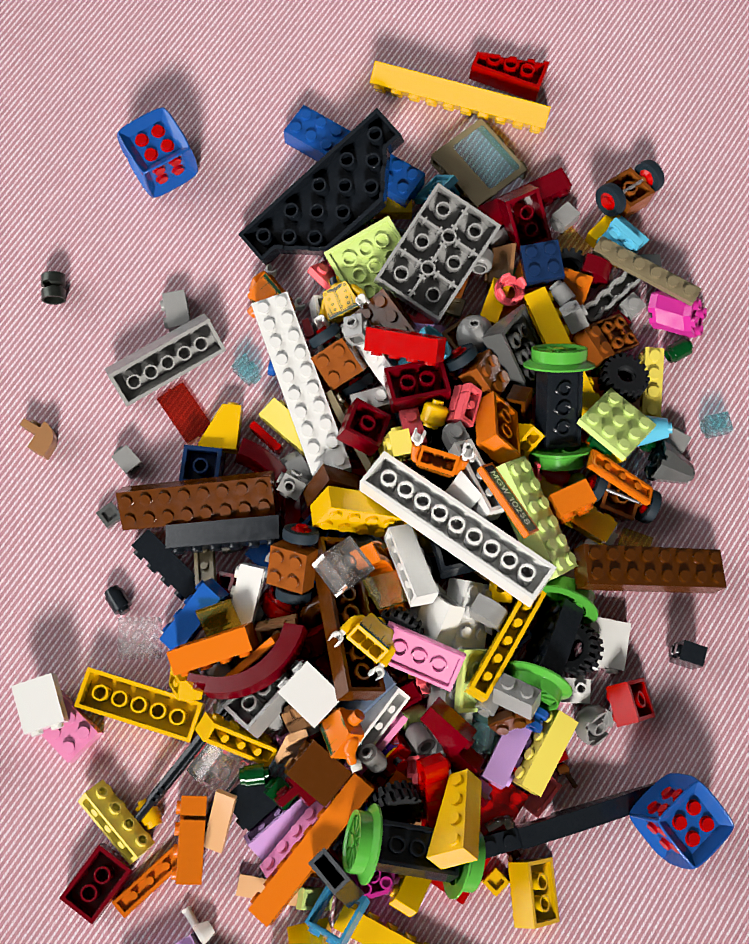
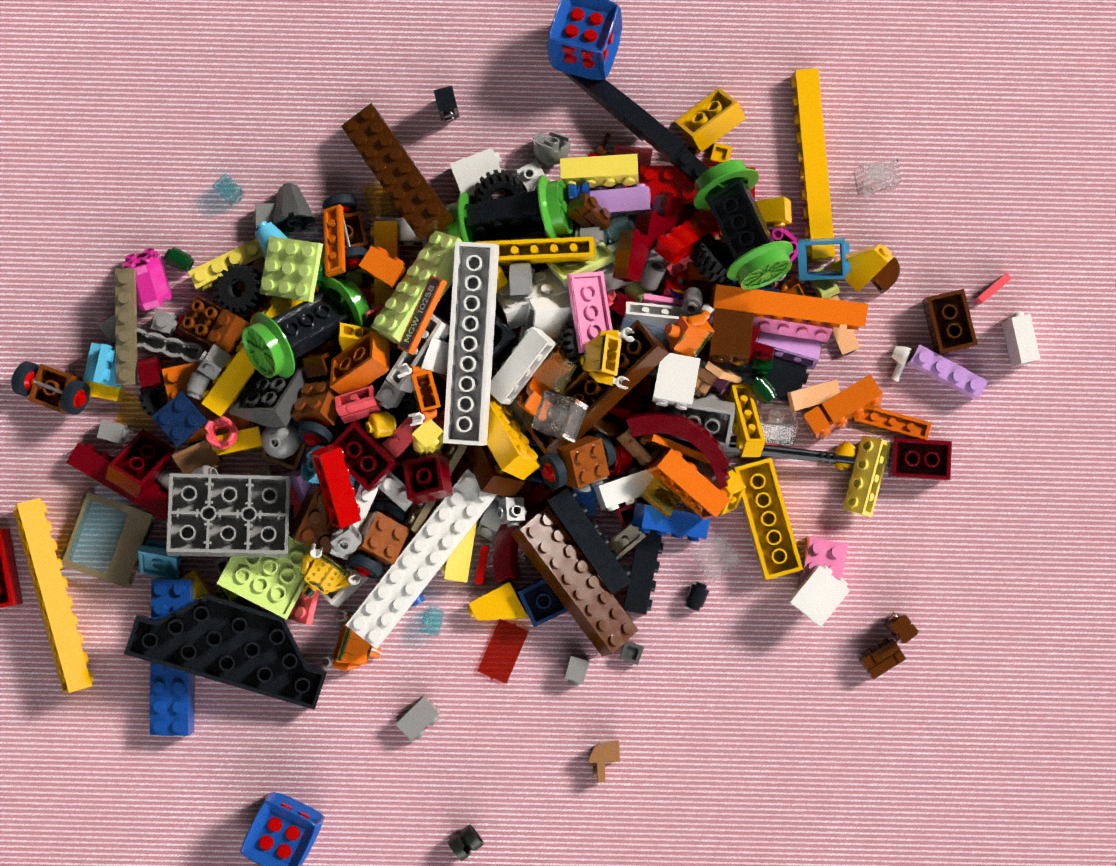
camera: 120 degrees left, 10 degrees up
(165, 359) = (469, 695): light grey brick -> none
(307, 329) = (361, 593): coral tile -> none
(335, 878) = (800, 272): brick -> none
(458, 822) = (700, 202): yellow wedge -> none
(498, 821) = (675, 176): clear smoke arm -> none
(516, 696) = (574, 215): light grey brick -> none
(630, 702) = (515, 128): red brick -> none

